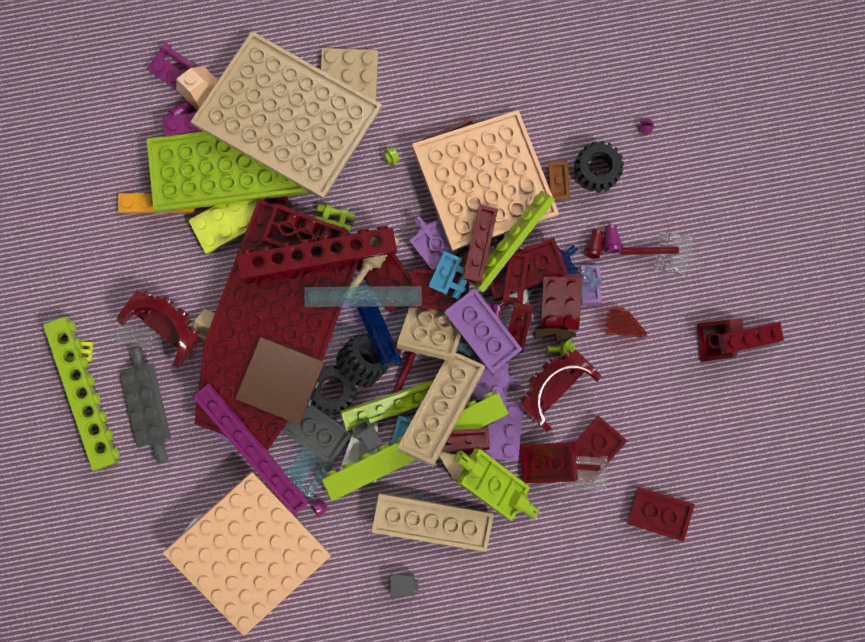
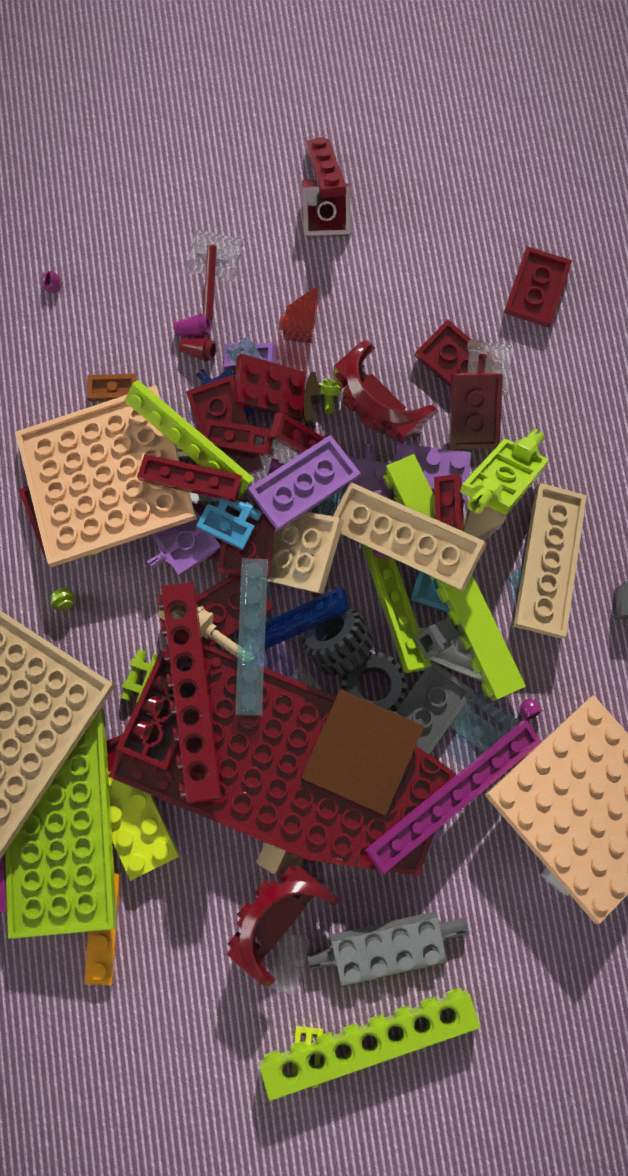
camera: 90 degrees left, 5 degrees down
(404, 372) = (355, 593): dark red piece -> none
(602, 151) = (93, 319): black tyre -> none

